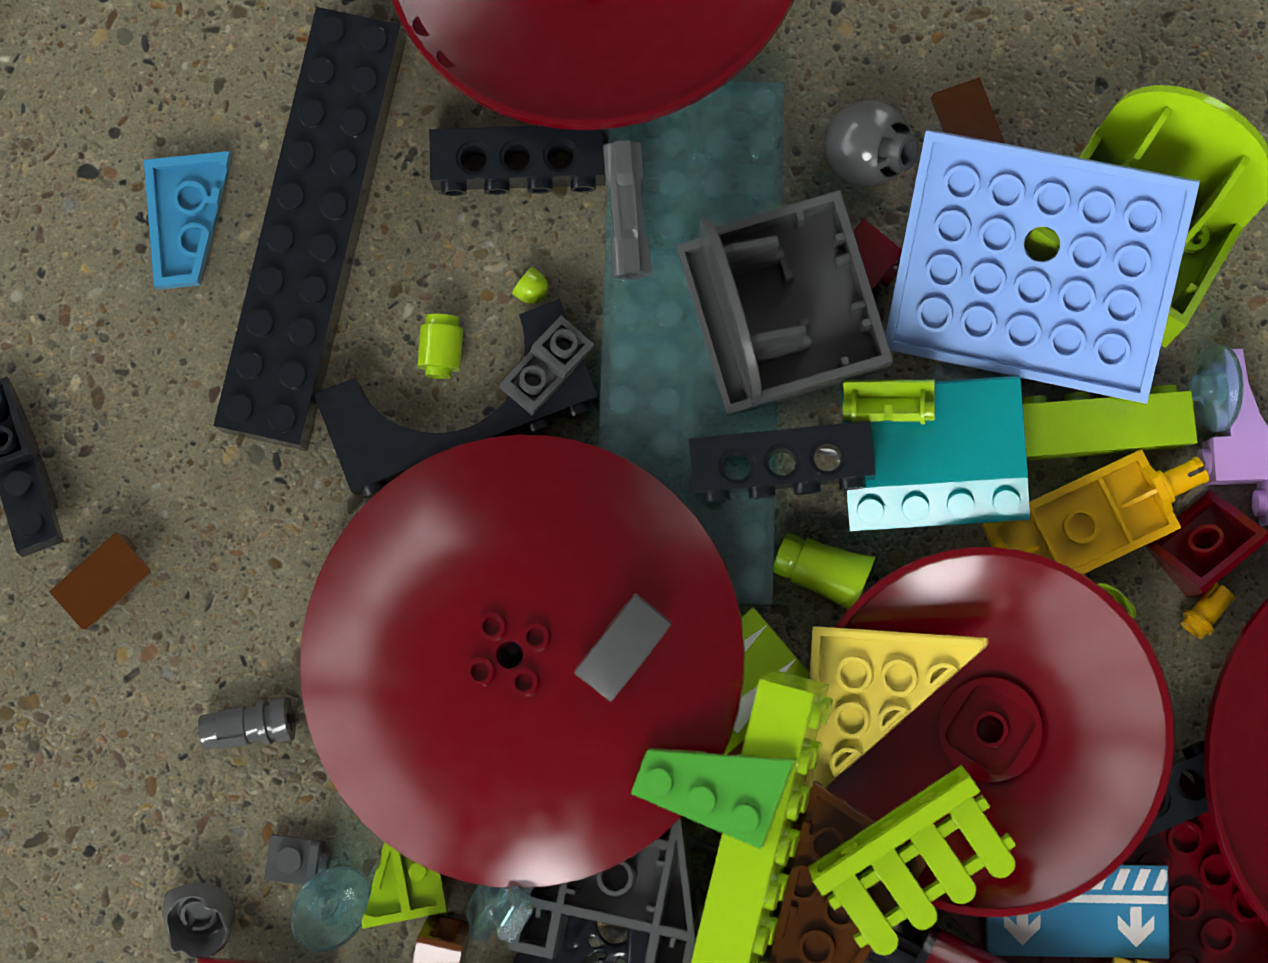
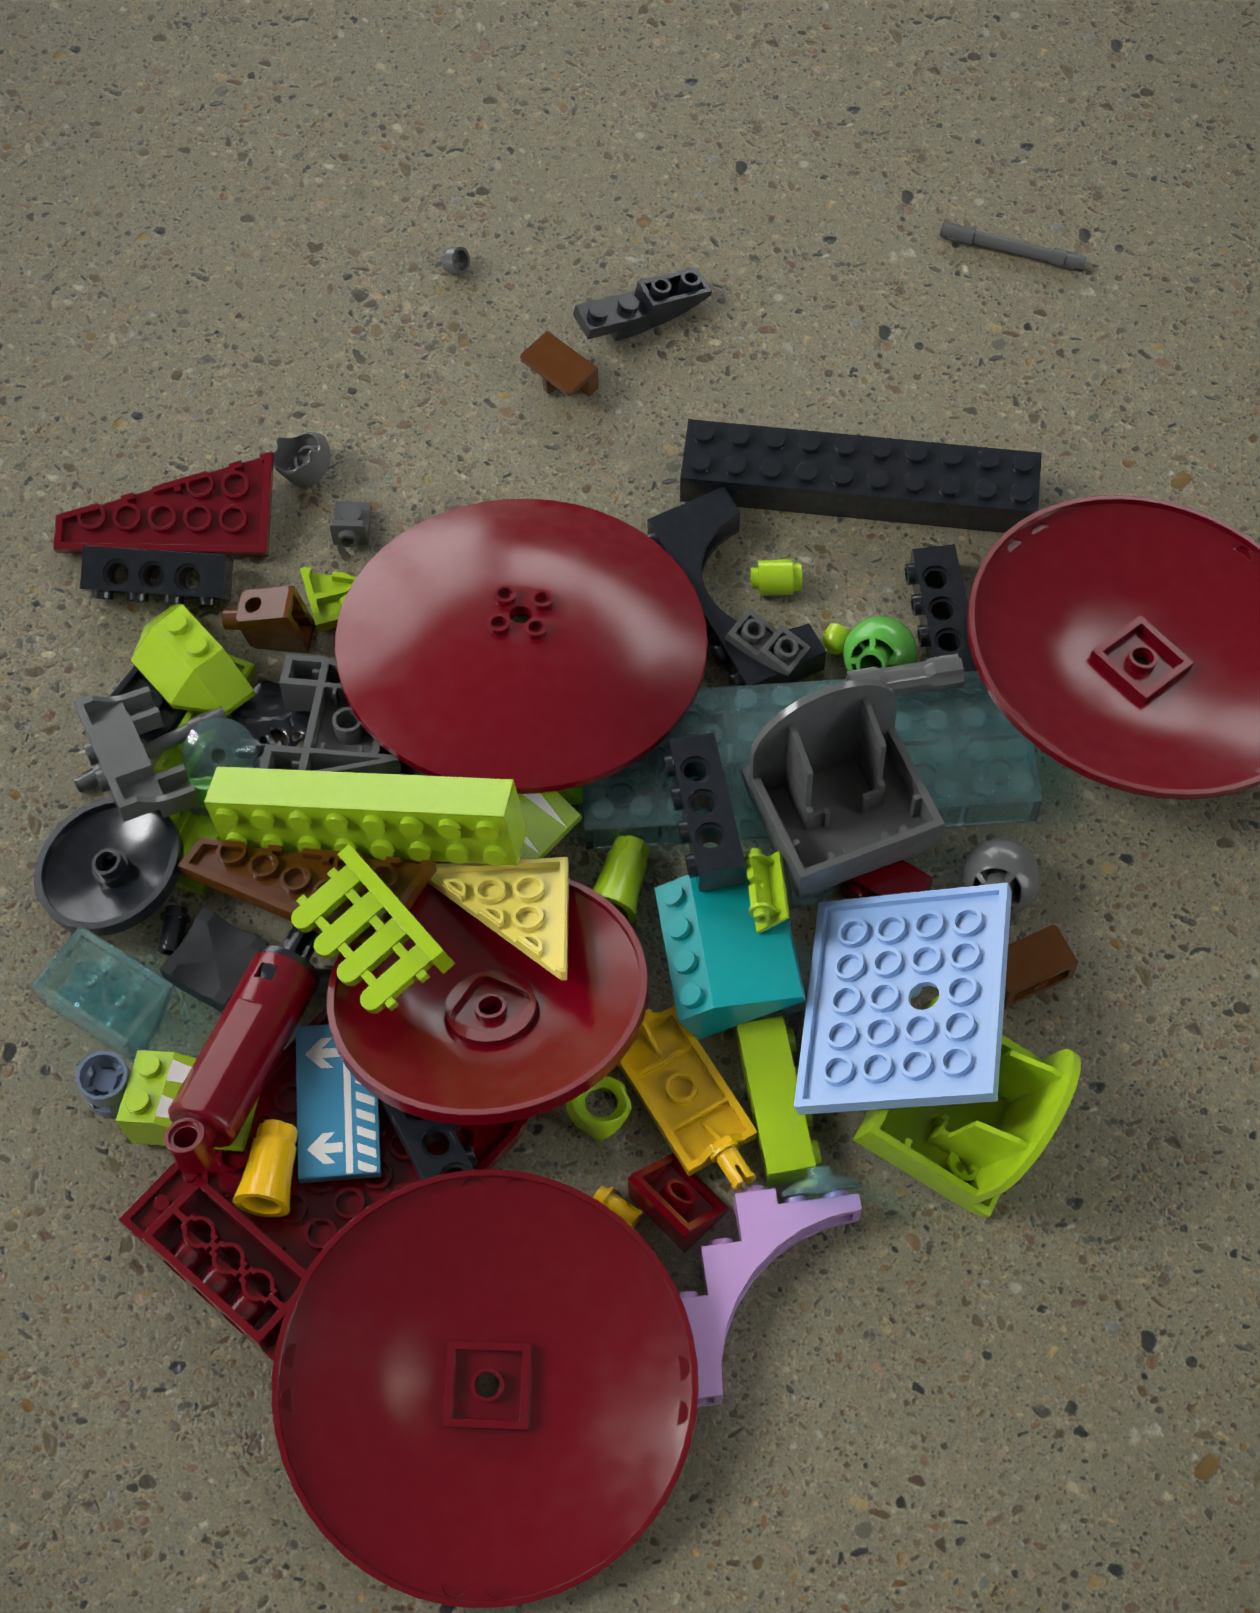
camera: 85 degrees right, 20 degrees down
(183, 213) = (858, 392): dark azure wing -> none
(248, 724) = (457, 484): dark grey axle -> none
(330, 909) = (300, 545): clear light blue dish -> none
(498, 908) = (315, 647): clear light blue tile -> none
(567, 237) = (879, 644): none -> bright green brick
(623, 647) = (532, 681): dark grey slope -> none
(717, 790) = (419, 762): bright green wing -> none

